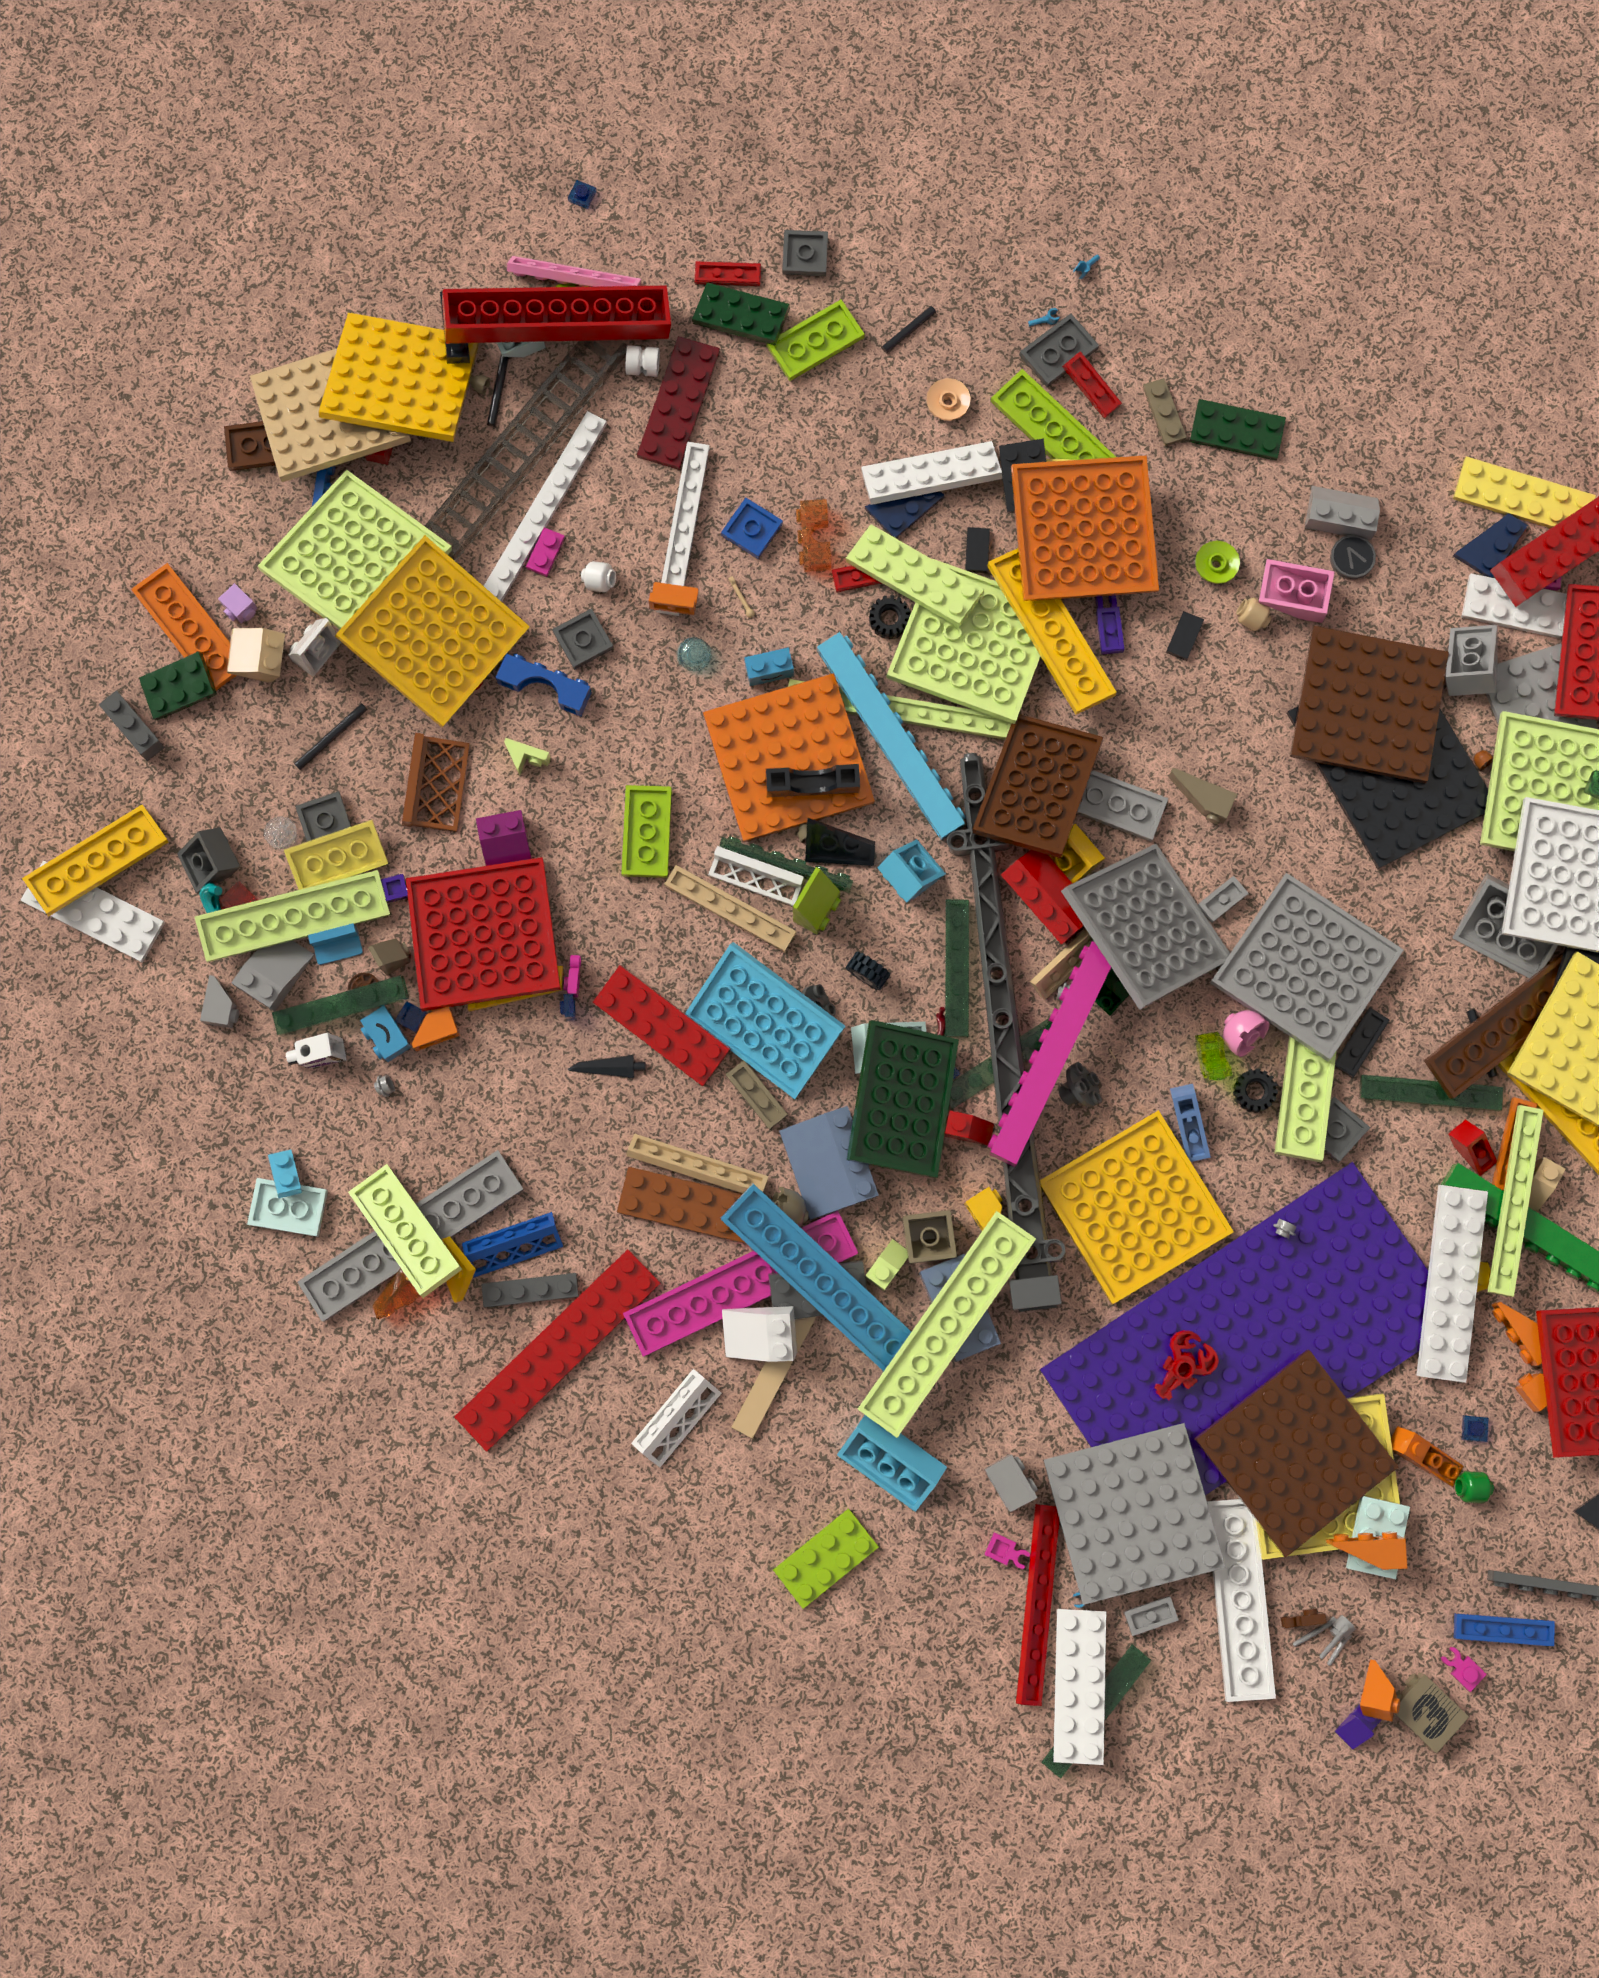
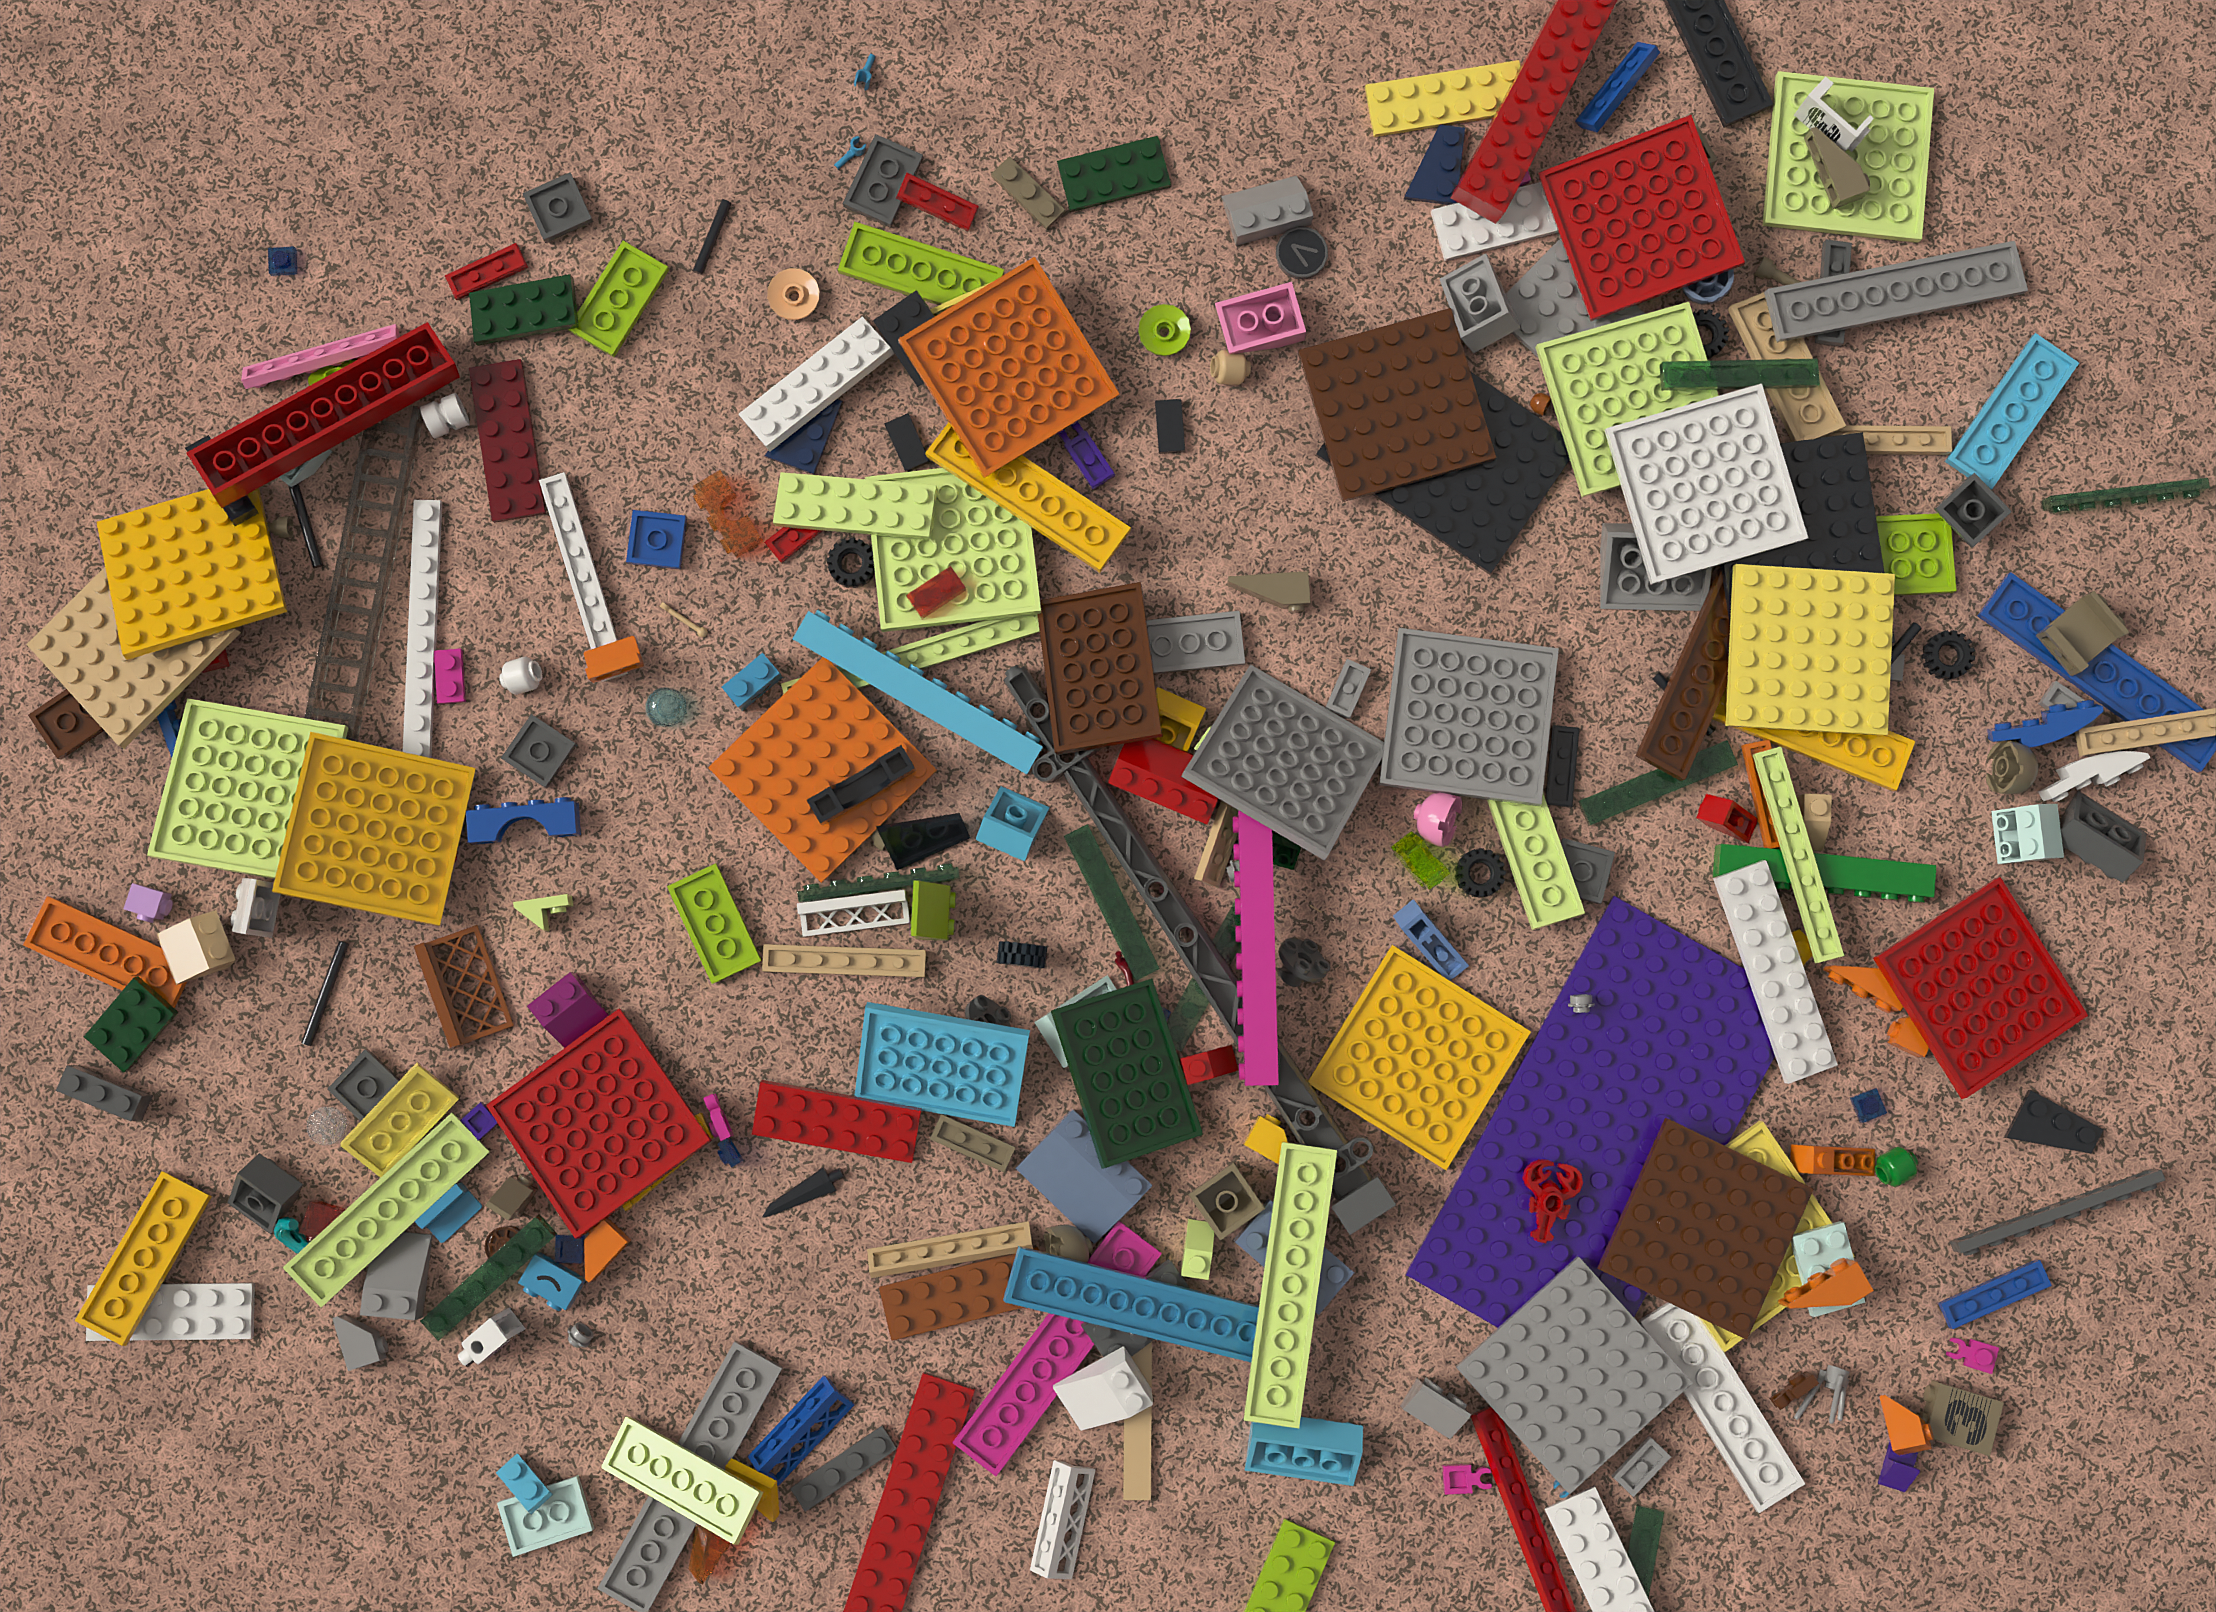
camera: 30 degrees left, 5 degrees up
(942, 668) = (936, 592): none -> clear red plate

